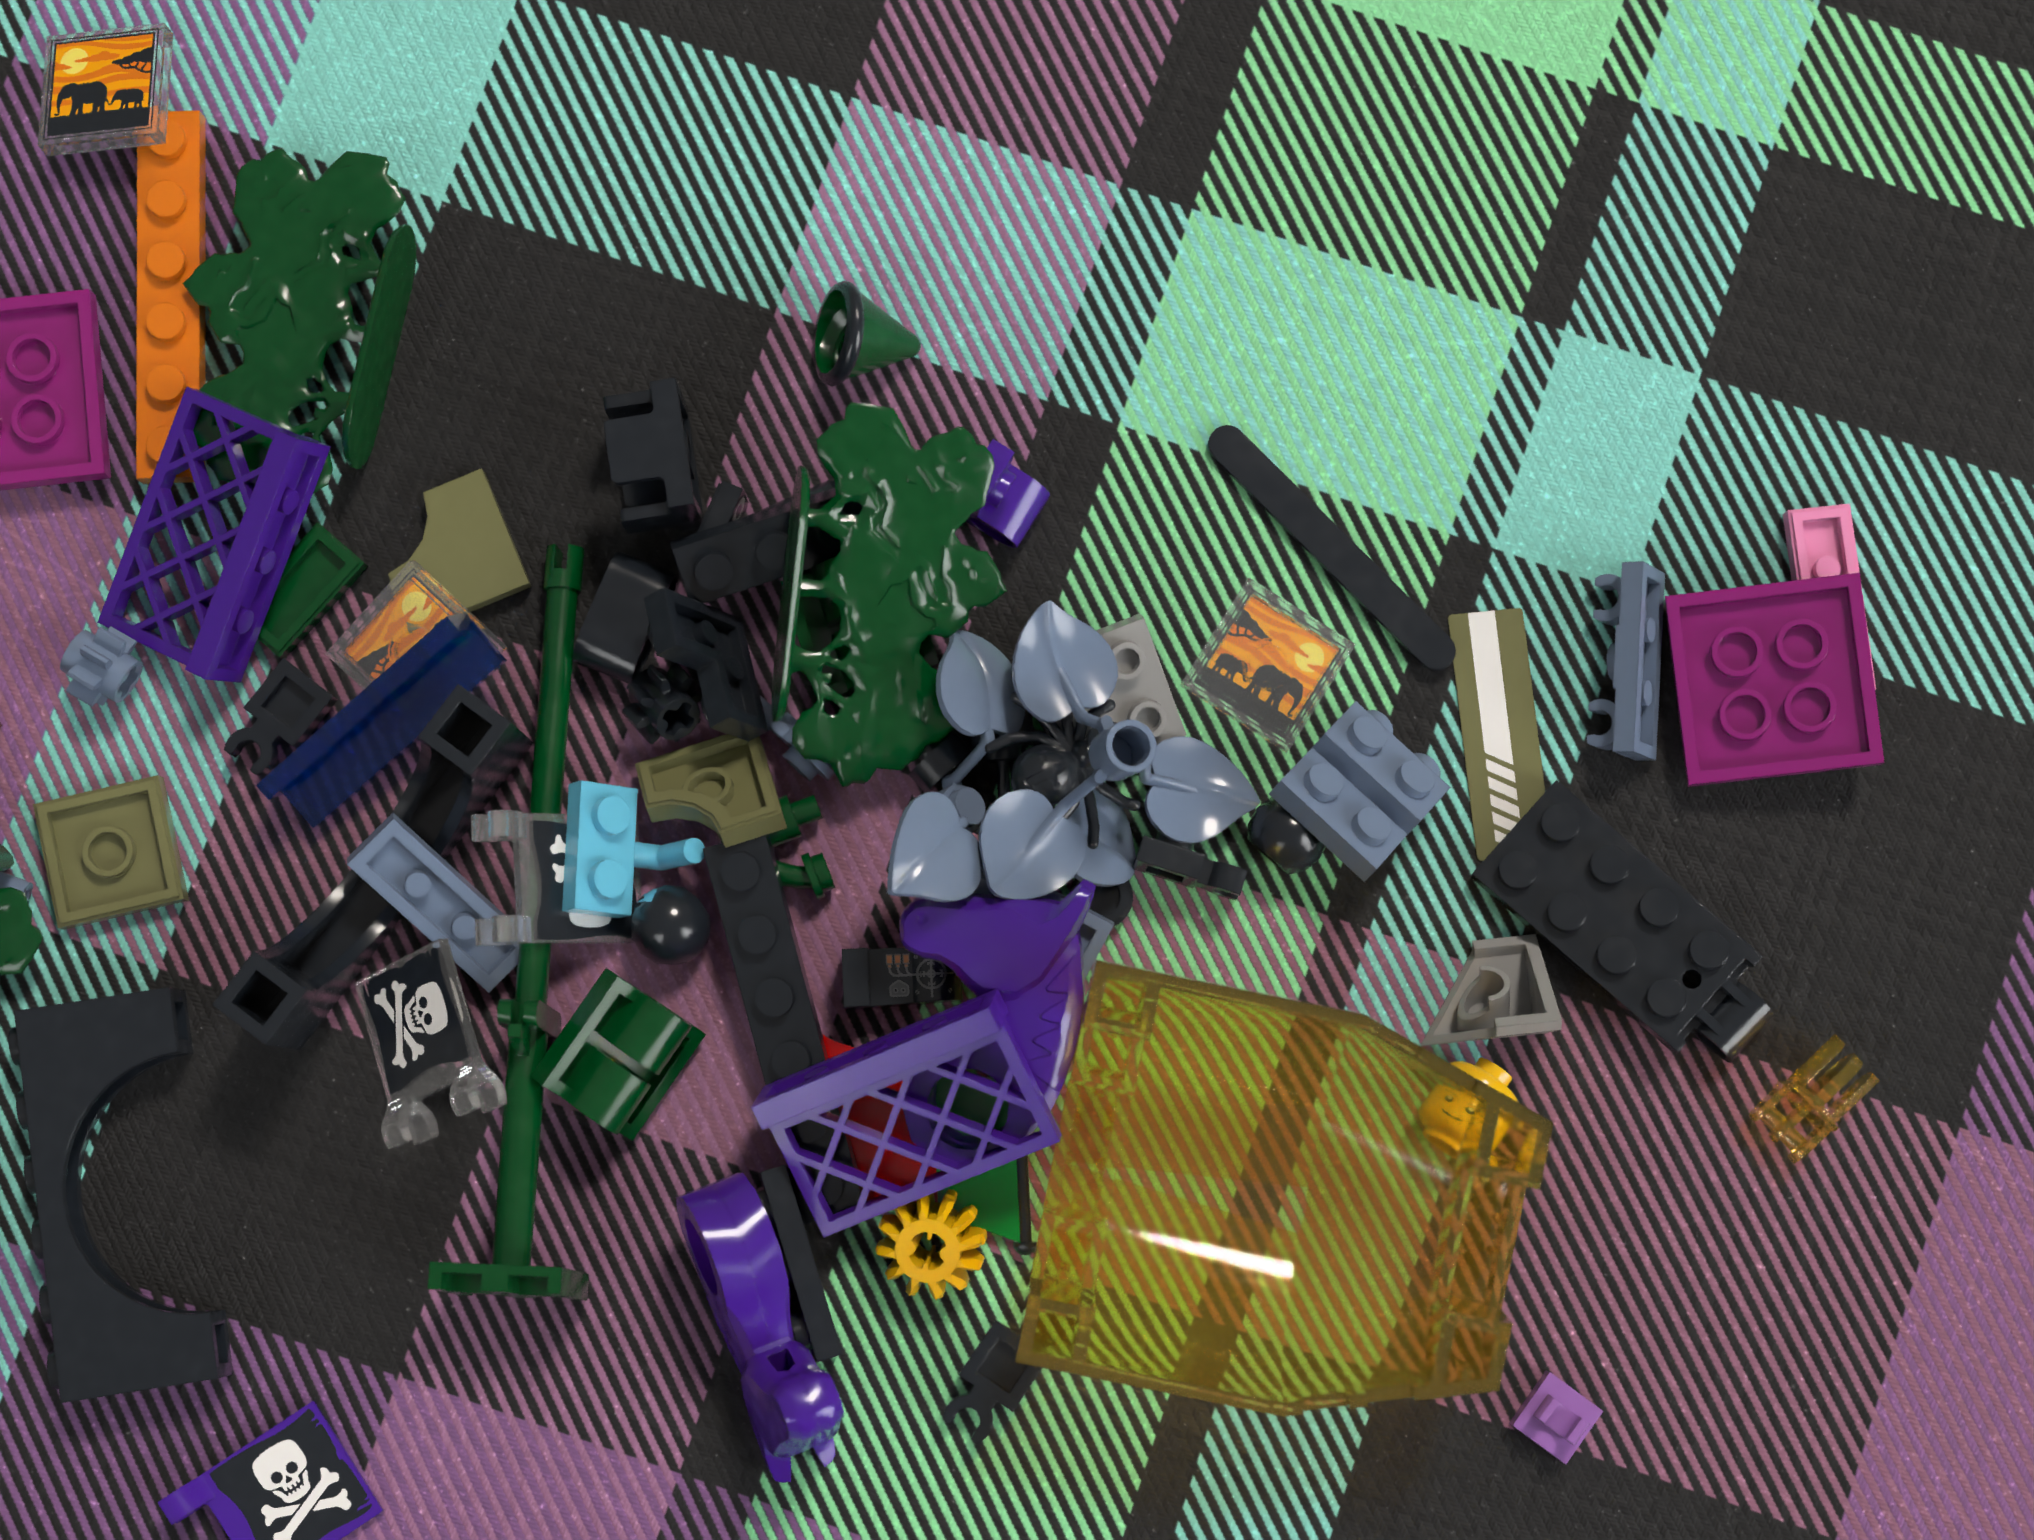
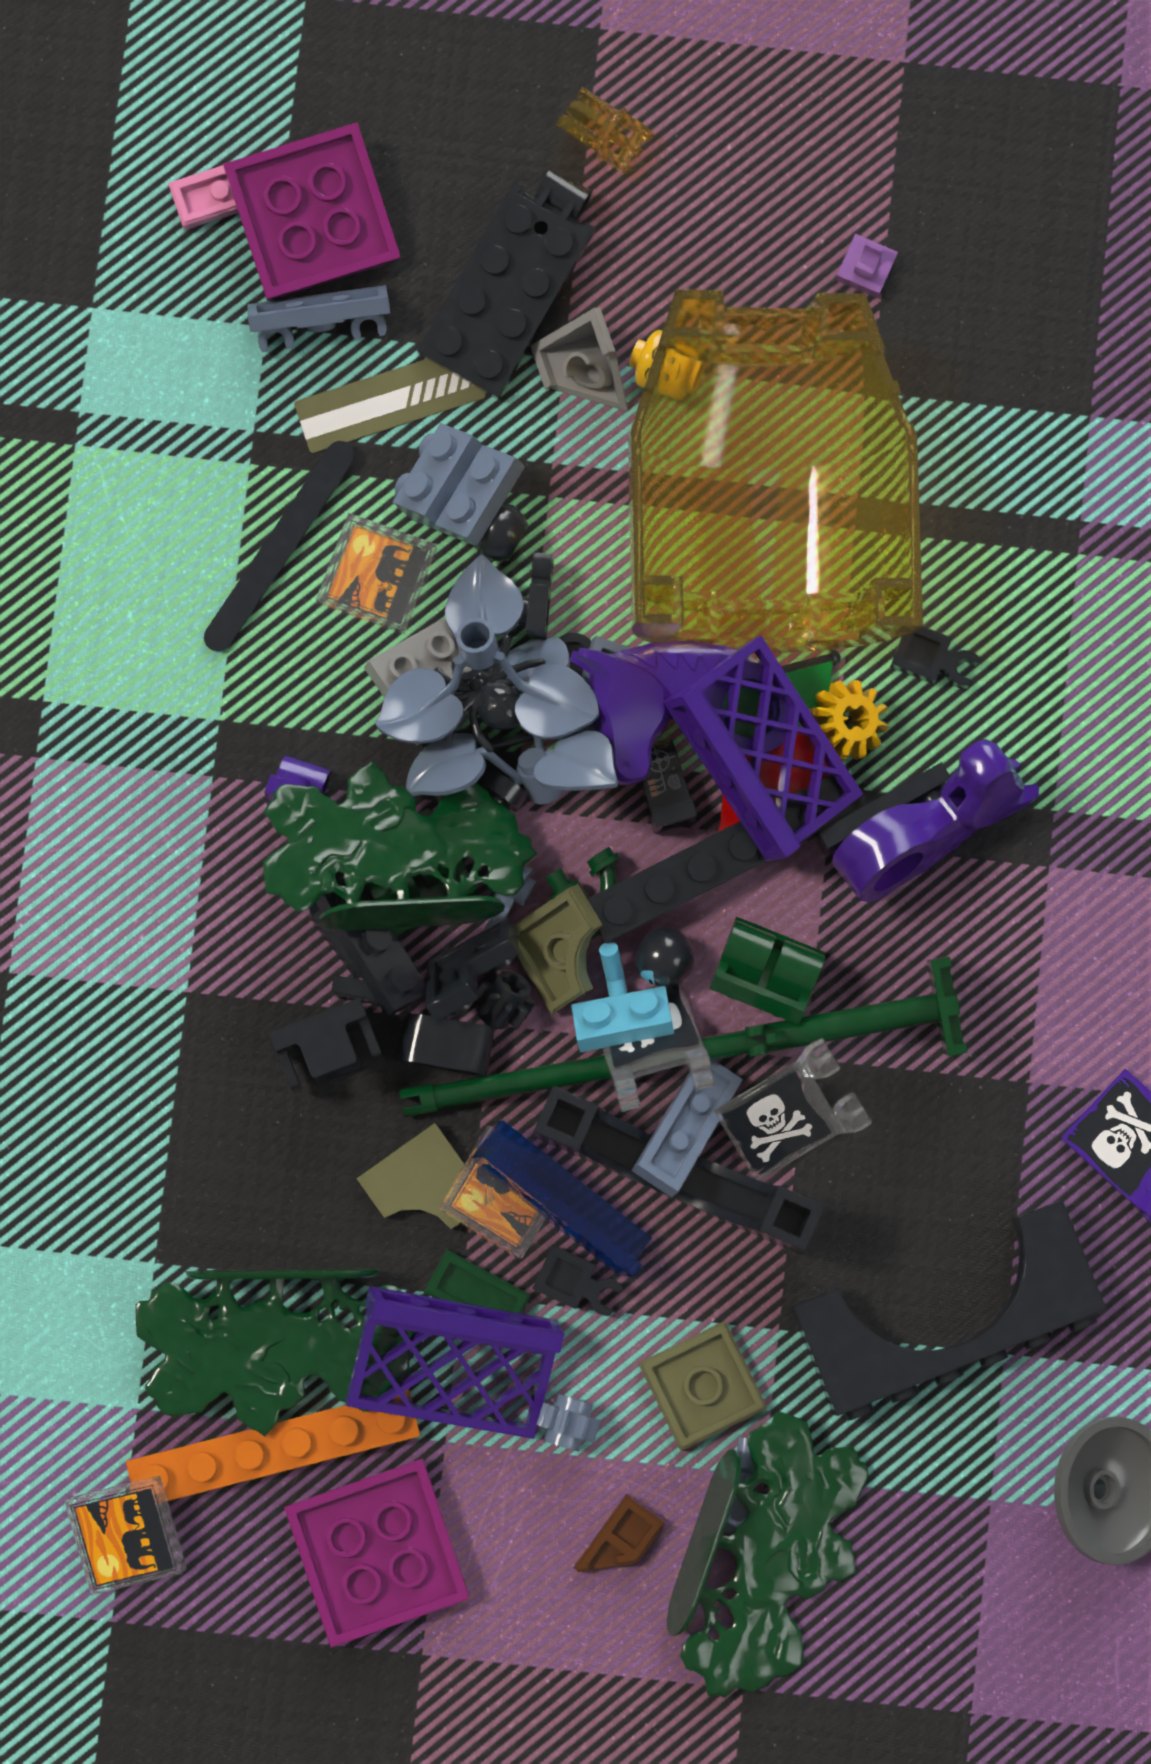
camera: 110 degrees left, 0 degrees up
(857, 336) = (183, 931): dark green hat -> none

